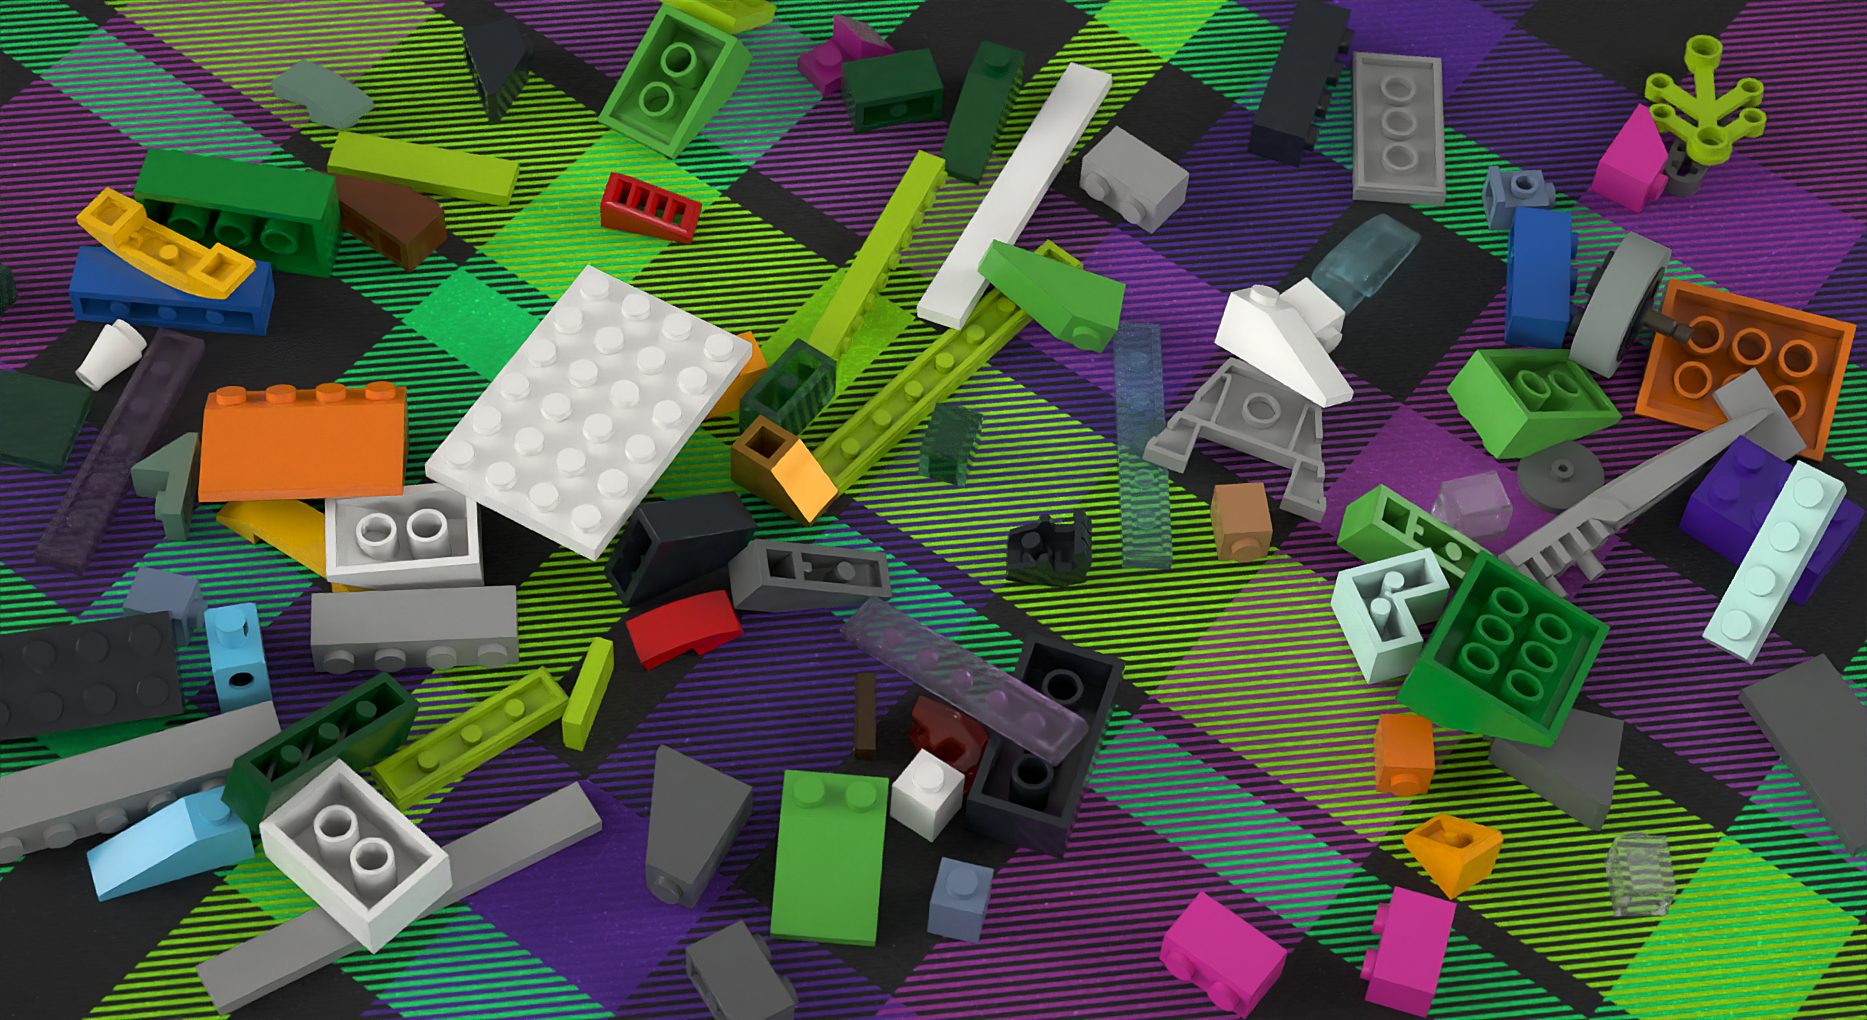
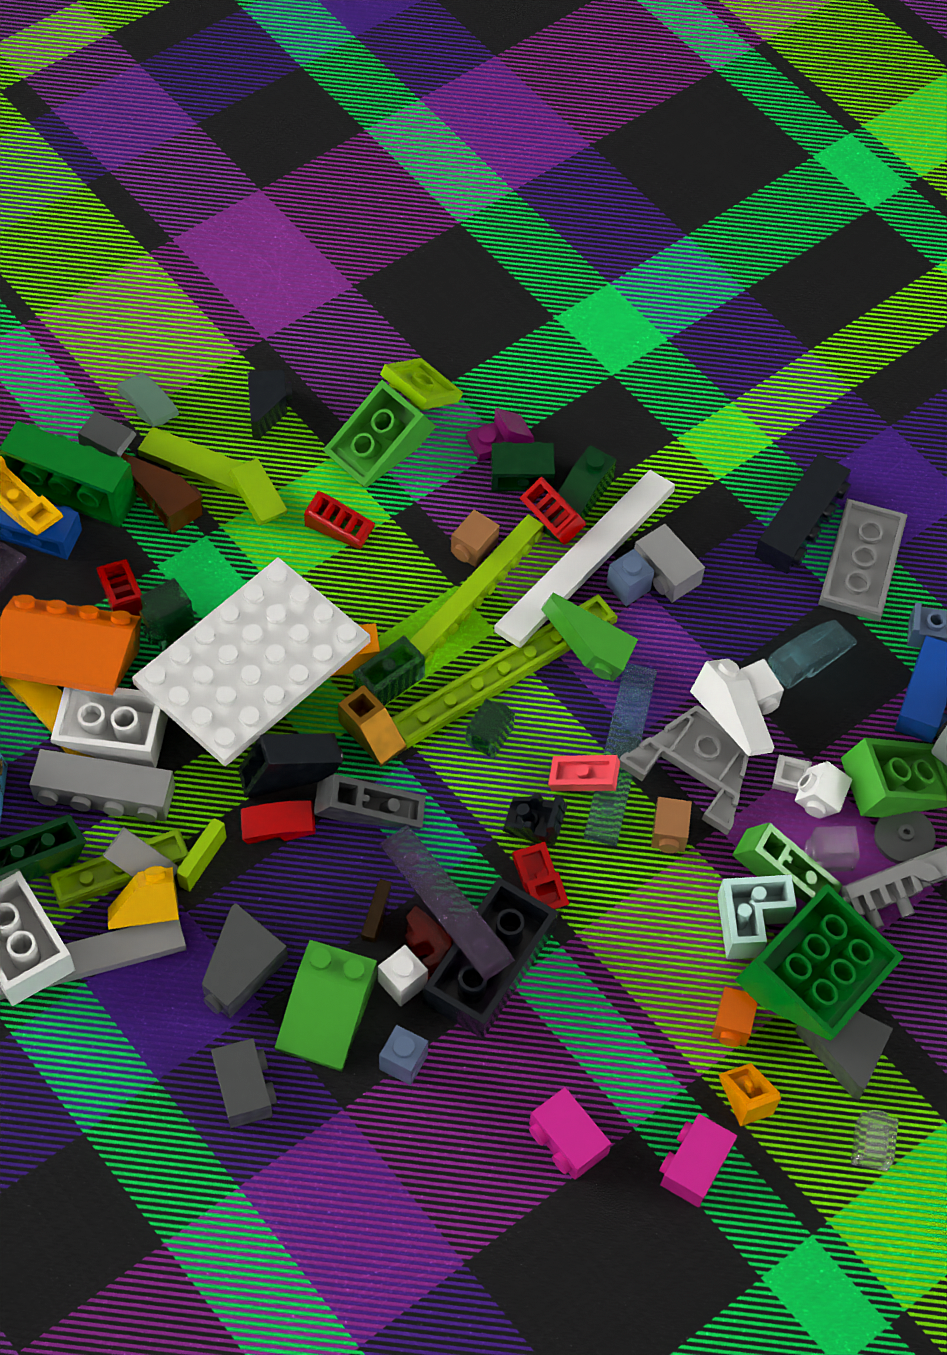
camera: 15 degrees right, 5 degrees up
(282, 146) = (105, 435): none -> dark grey slope
(362, 361) = (121, 592): none -> red slope
(444, 376) = (166, 614): none -> clear green brick
(505, 717) = (134, 854): none -> light grey tile
(522, 190) = (258, 491): none -> lime tile
(527, 768) = (145, 899): none -> yellow slope
(853, 196) = (474, 538): none -> medium nougat brick
(976, 155) = (566, 524): none -> red slope
(1070, 618) = (539, 875): none -> red slope
(1087, 207) = (630, 577): none -> sand blue brick
(1101, 476) = (584, 773): none -> coral plate
(1384, 427) = (789, 773): none -> white tile
(1436, 434) = (823, 790): none -> white brick

